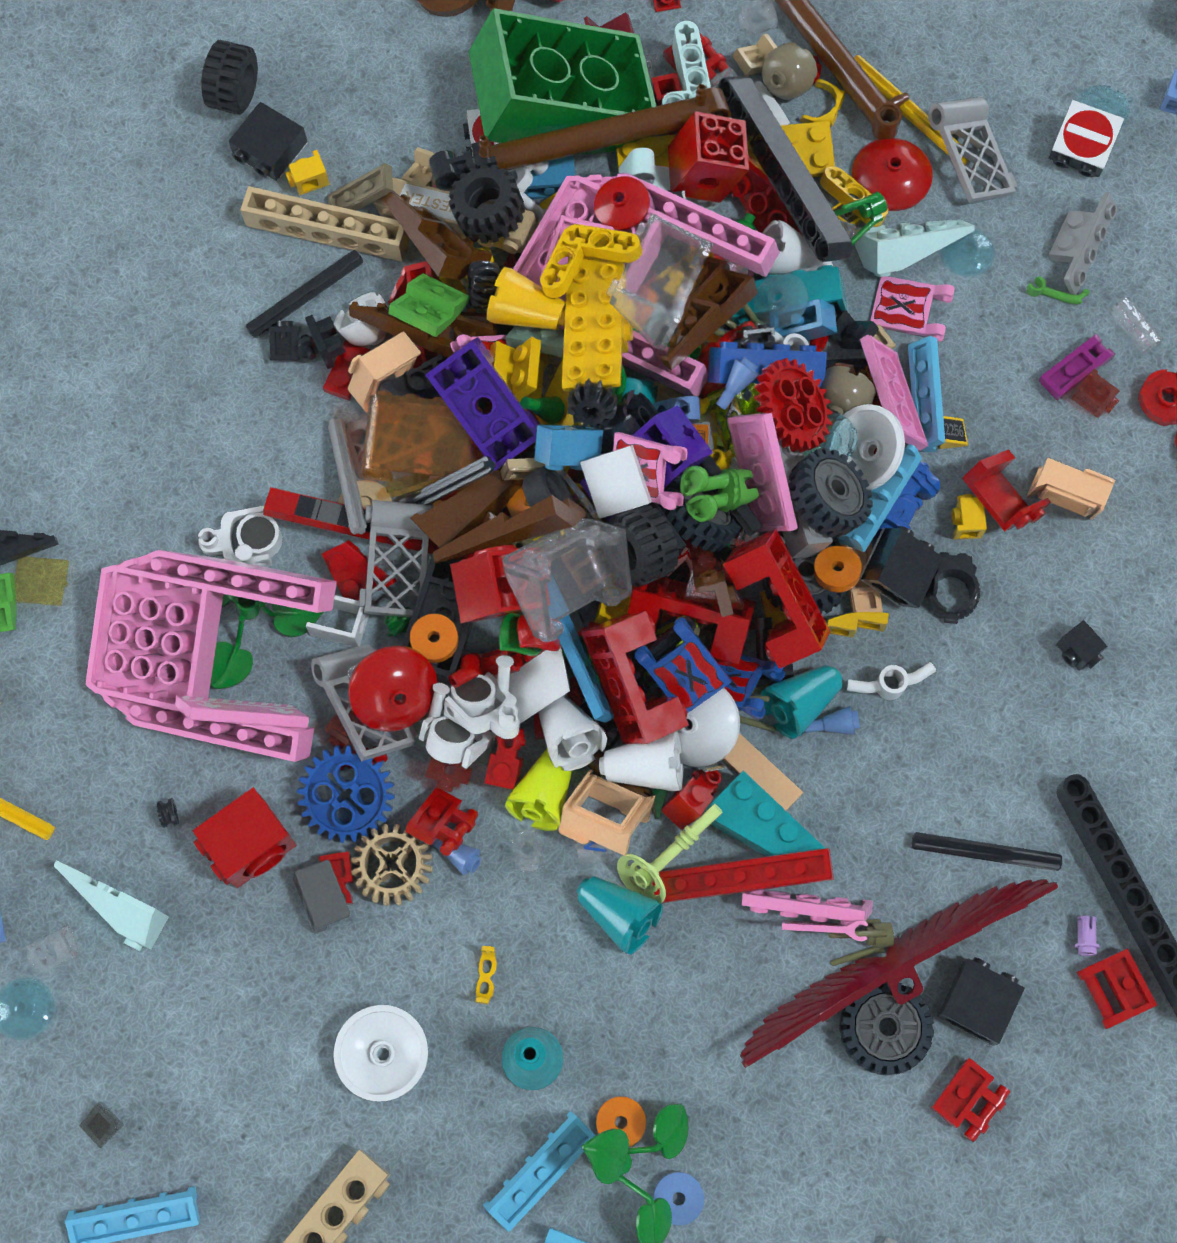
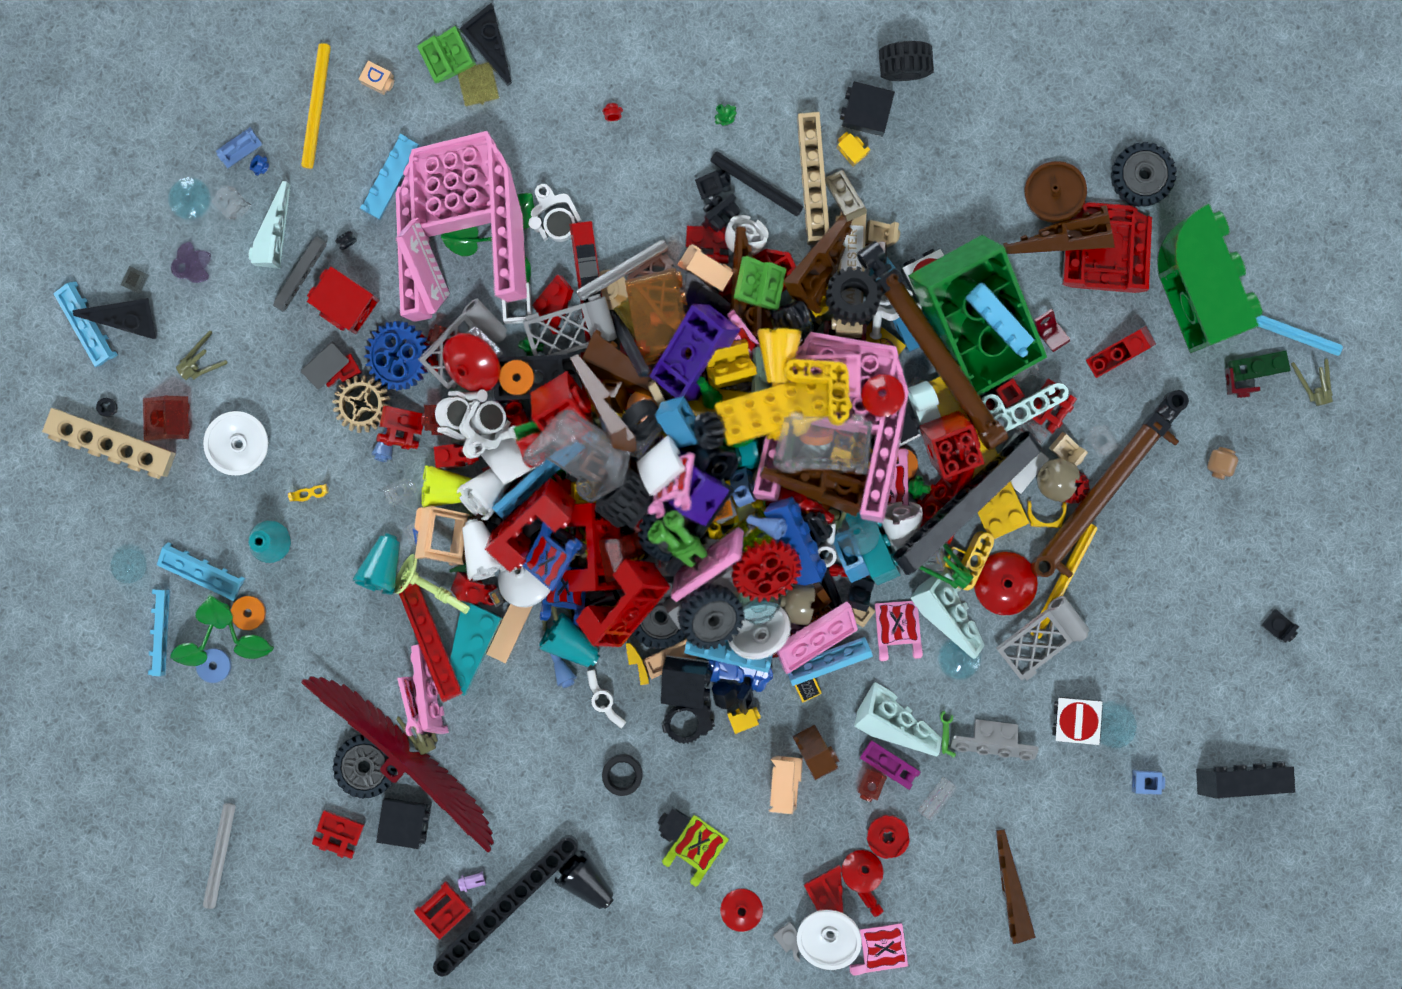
camera: 70 degrees right, 15 degrees up
(19, 894) = (259, 165): none -> blue plate
(109, 729) = (389, 178): none -> medium azure hinge
(112, 1031) = (194, 263): none -> clear purple plate
(146, 429) = (612, 112): none -> red plate
(146, 1150) = (127, 316): none -> black wing
(186, 889) = (299, 273): none -> dark grey beam
(206, 300) = (726, 115): none -> green plant
(251, 1087) = (188, 365): none -> olive plant
(251, 1226) = (100, 409): none -> black bush
(308, 1145) = (166, 418): none -> clear red slope
(469, 670) = (503, 409): red arm -> none
(578, 52) = (1000, 319): none -> medium azure hinge
(716, 581) = (610, 559): reddish brown bracket -> none
(837, 580) = (675, 638): orange piece -> none
(932, 525) = (727, 696): none -> black leg
(987, 851) = (507, 799): black axle -> none
(999, 495) = (765, 738): red panel -> none
(1008, 671) = (625, 790): none -> black tyre
(1024, 350) = (887, 720): none -> light aqua wedge
(1043, 435) = (818, 757): none -> reddish brown wedge
(1122, 630) = (697, 846): none -> flag
(1127, 781) = (585, 881): none -> black cone

